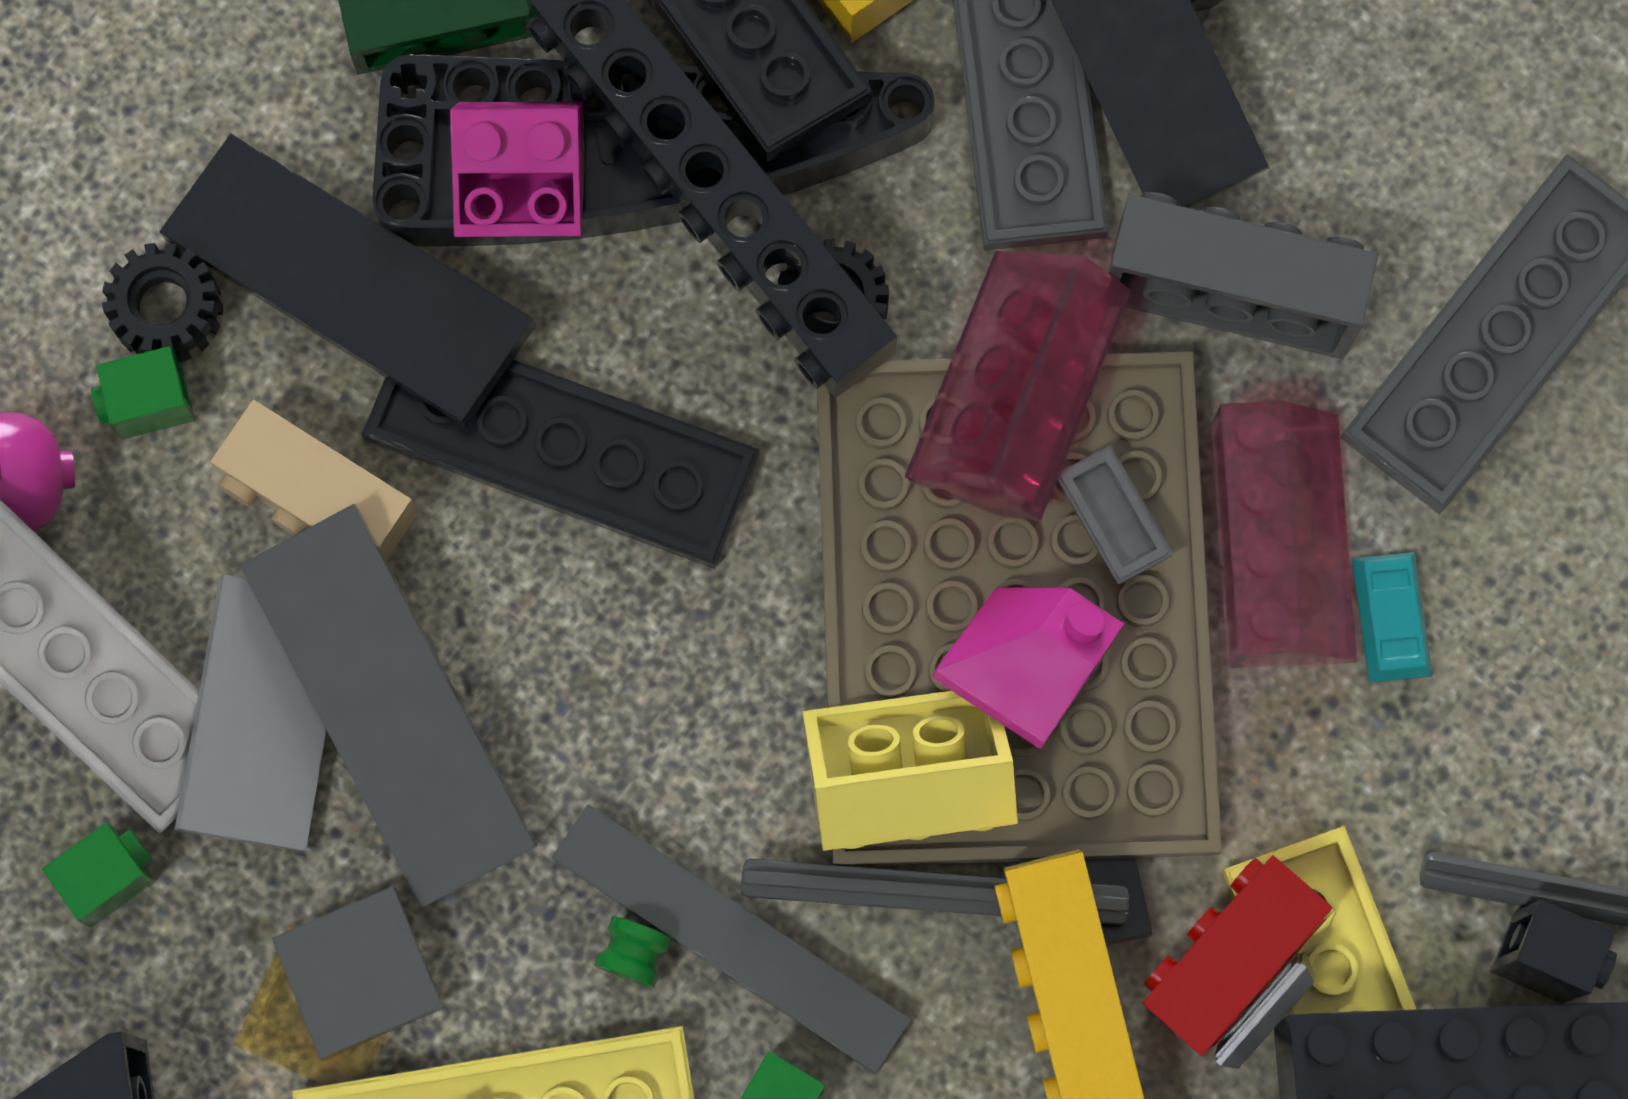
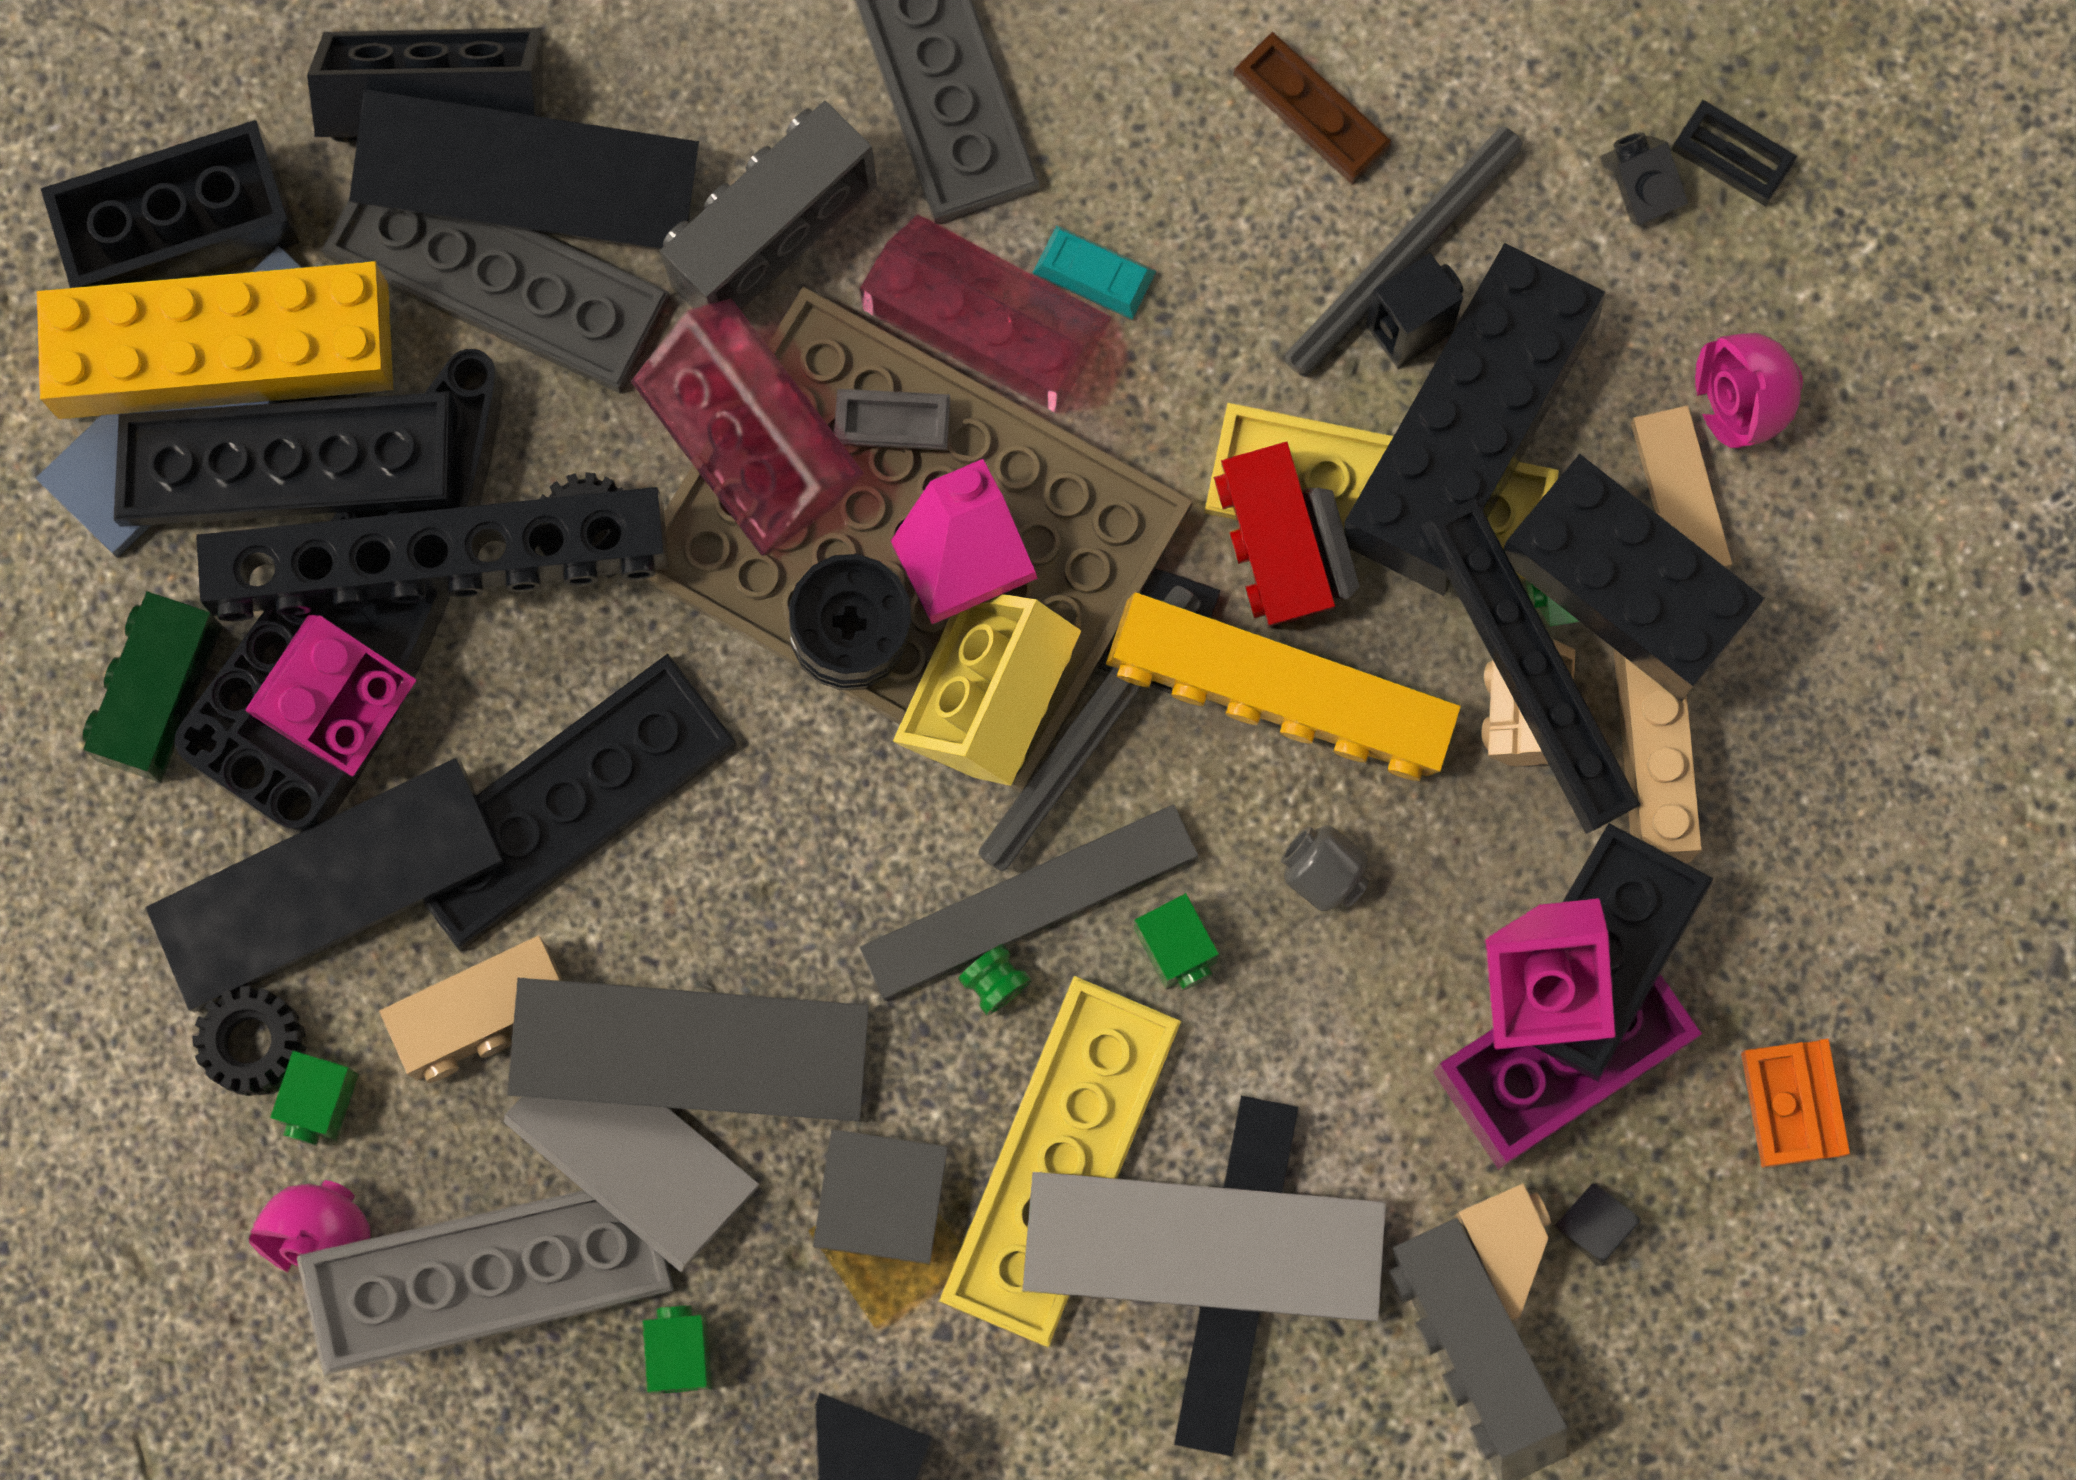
camera: 55 degrees left, 0 degrees up
(898, 563) = (857, 589): none -> black wheel

